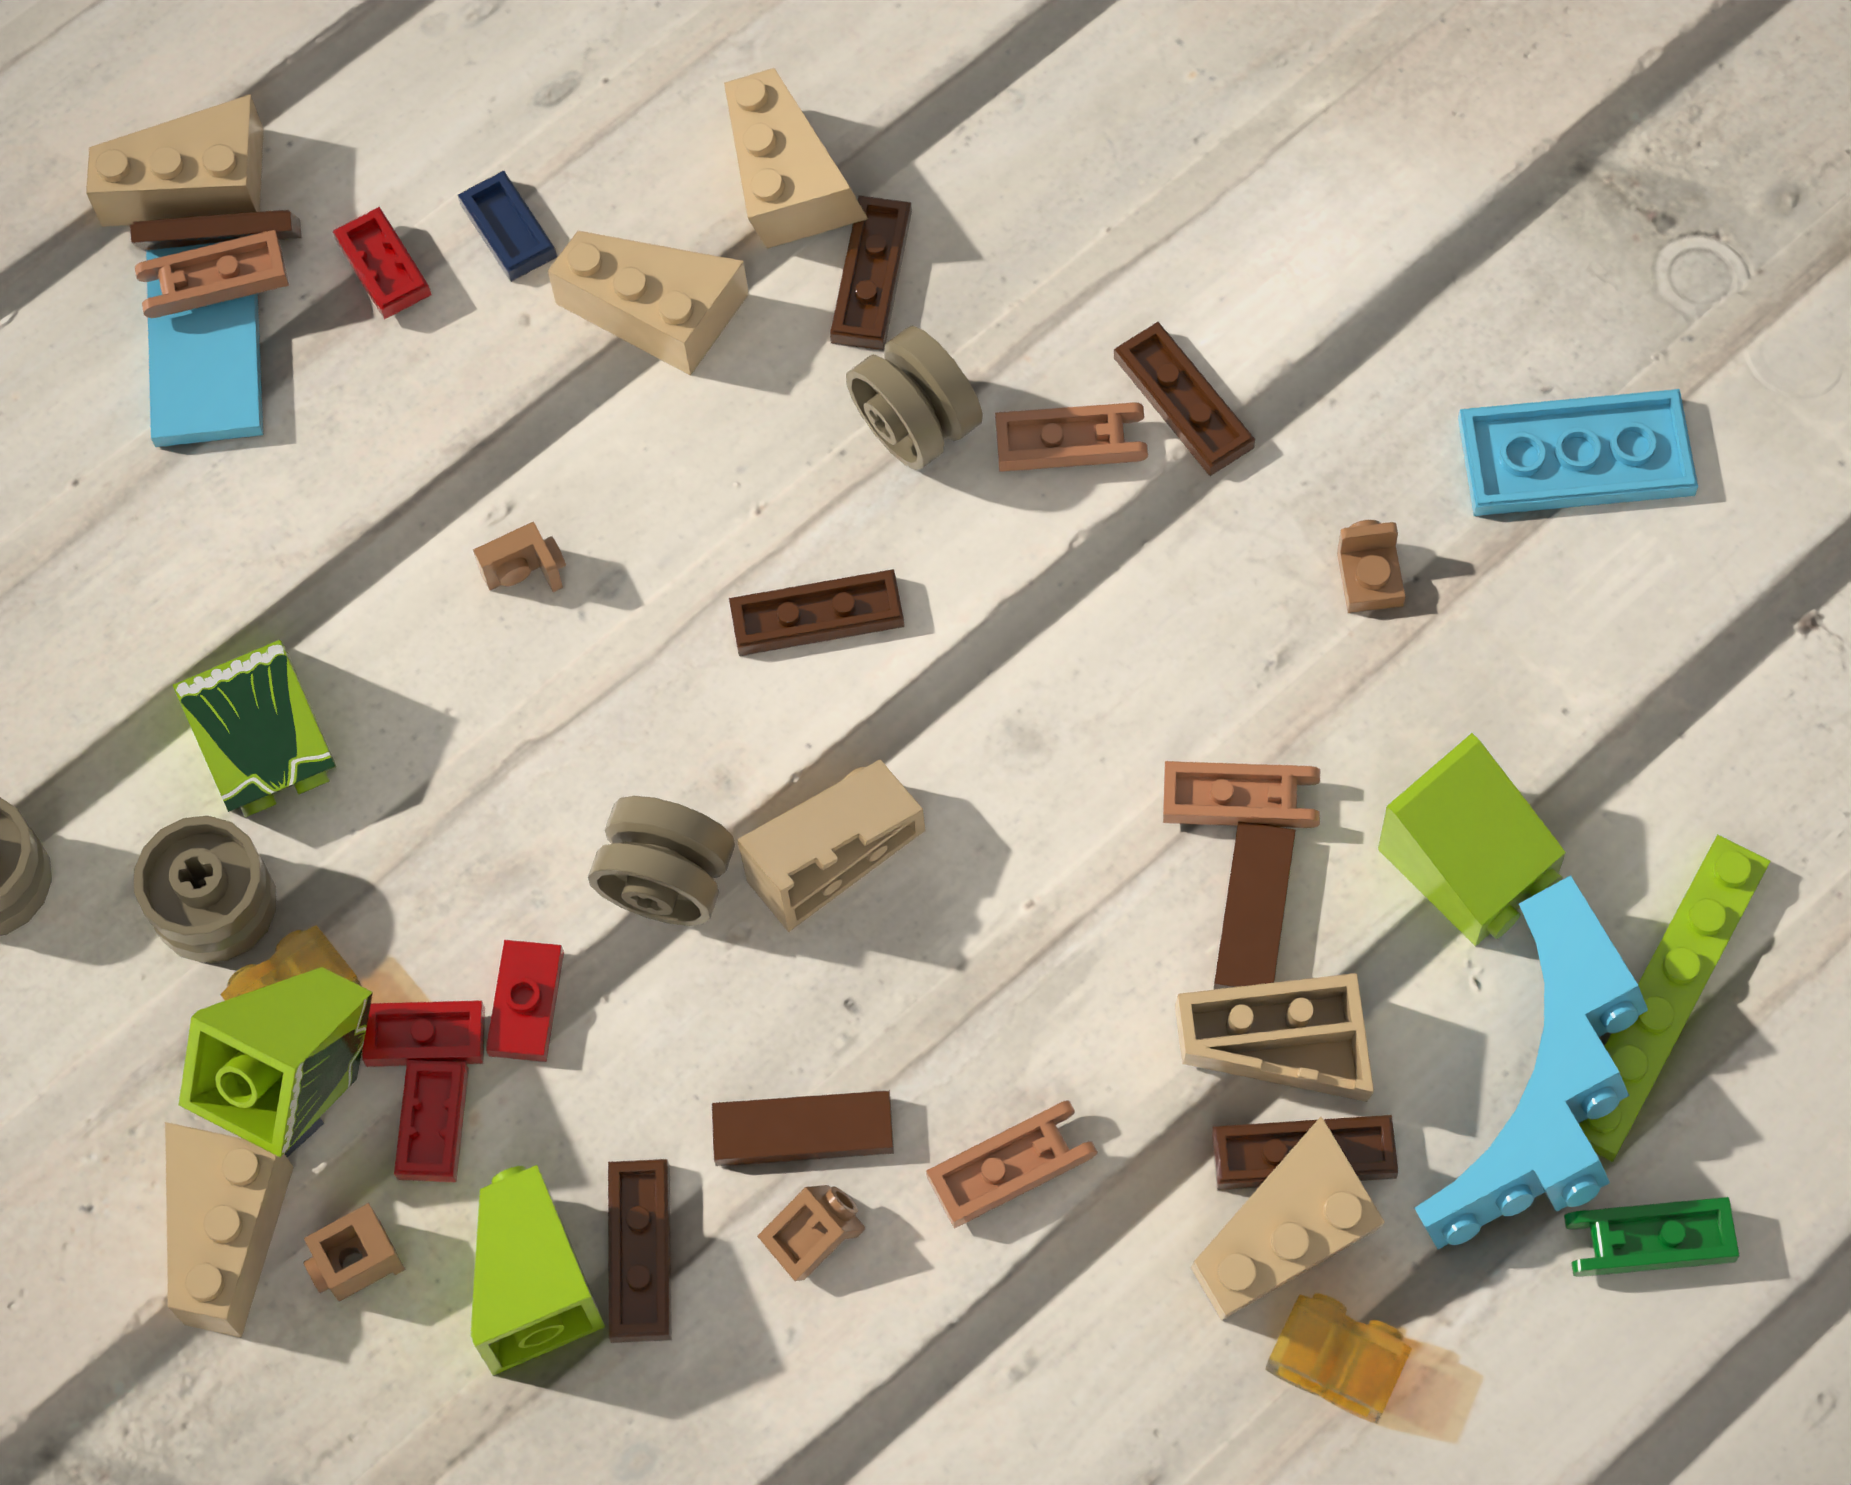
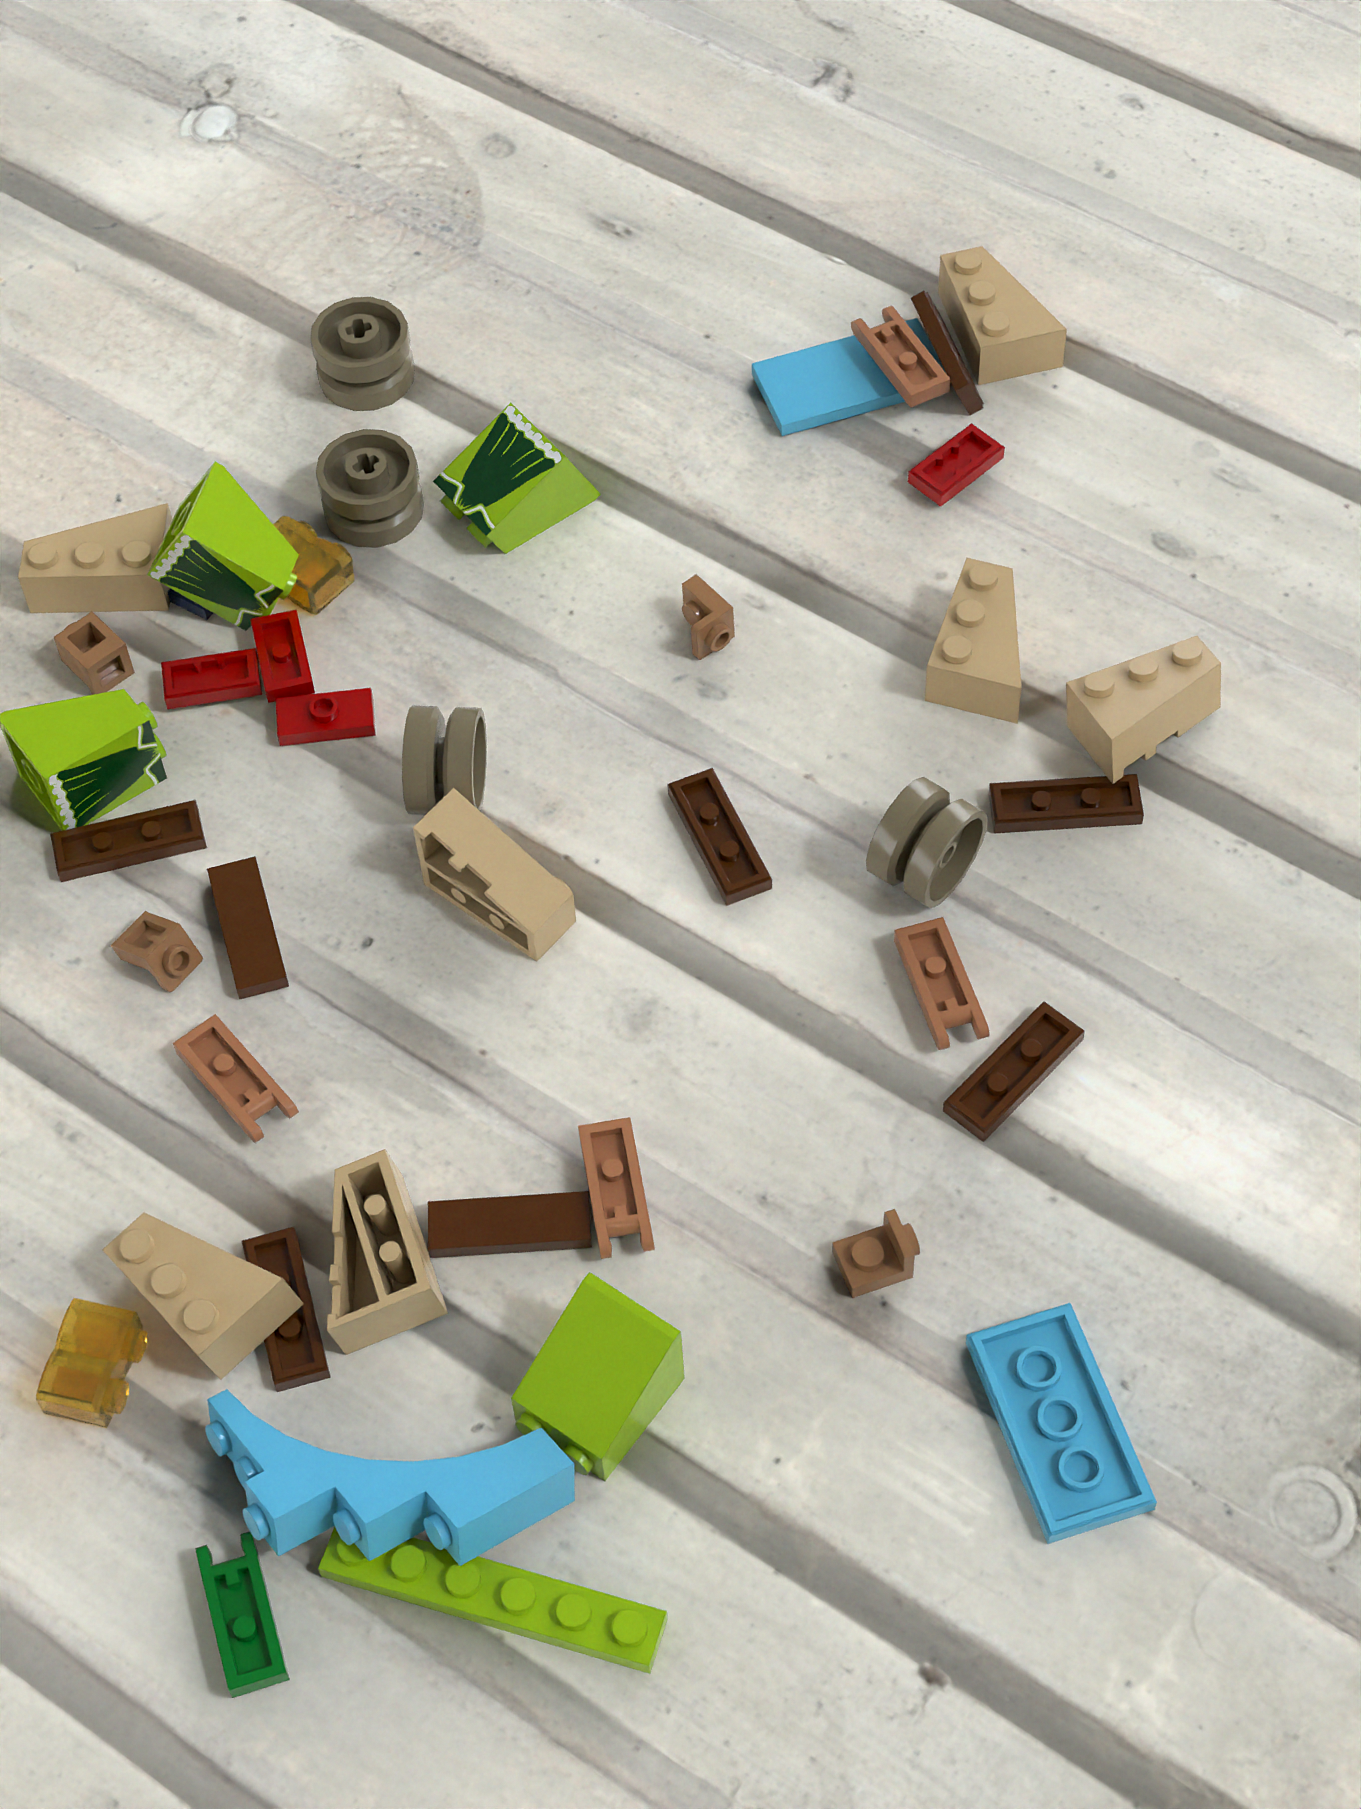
camera: 75 degrees right, 10 degrees down
(507, 226) = (1025, 538): dark blue tile -> none

